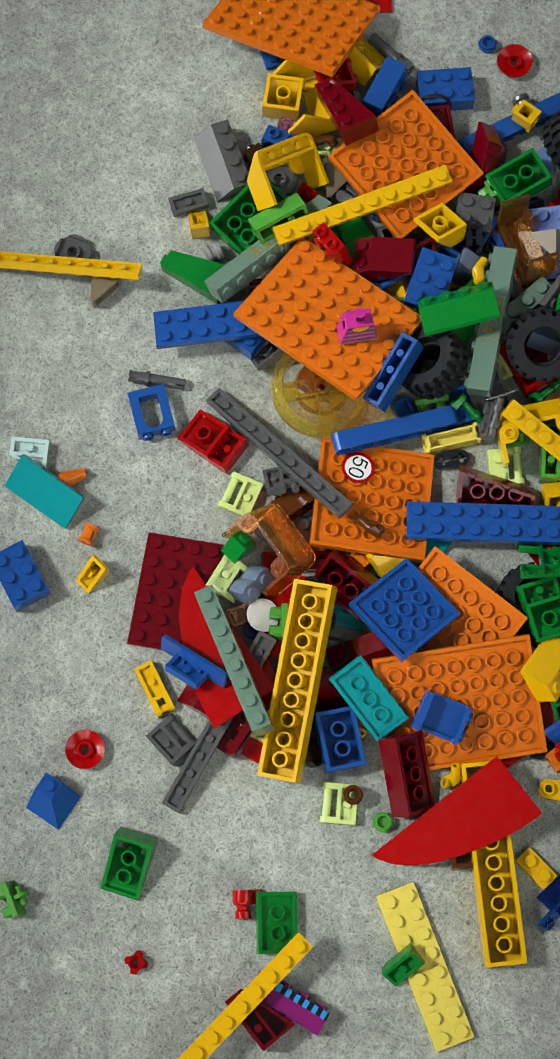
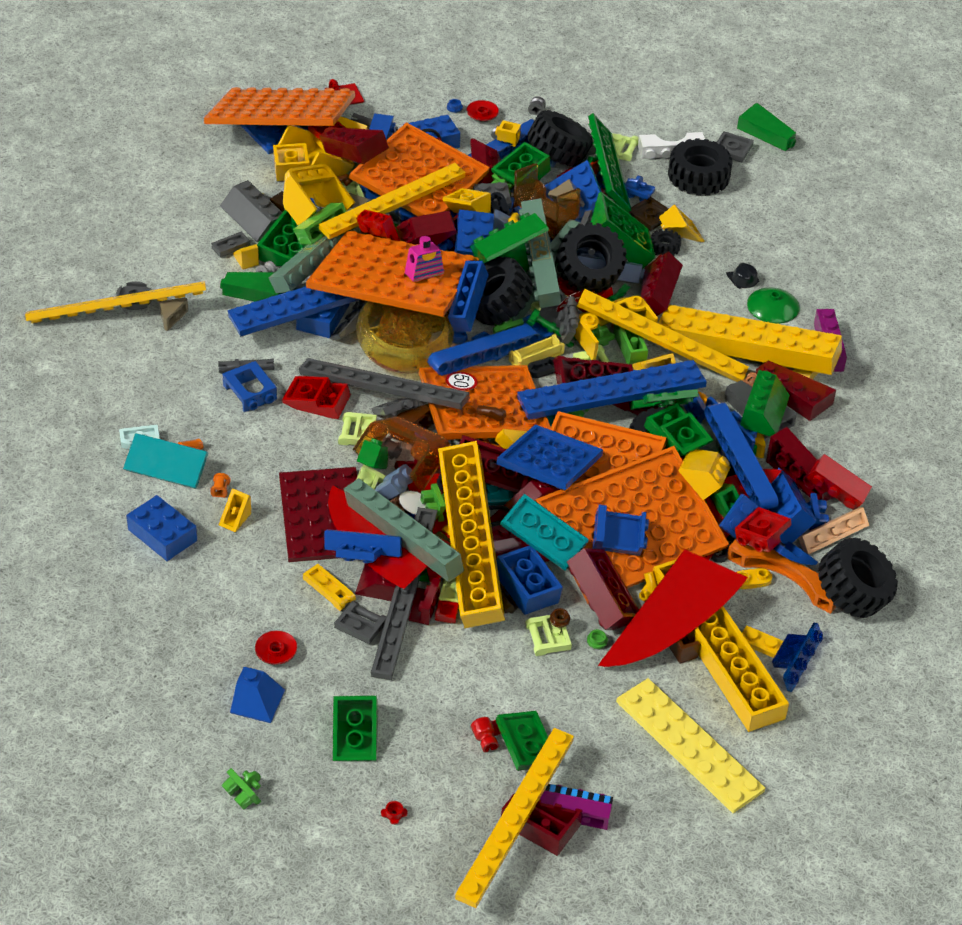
camera: 20 degrees left, 30 degrees down
(402, 965) = (668, 743): green slope -> none

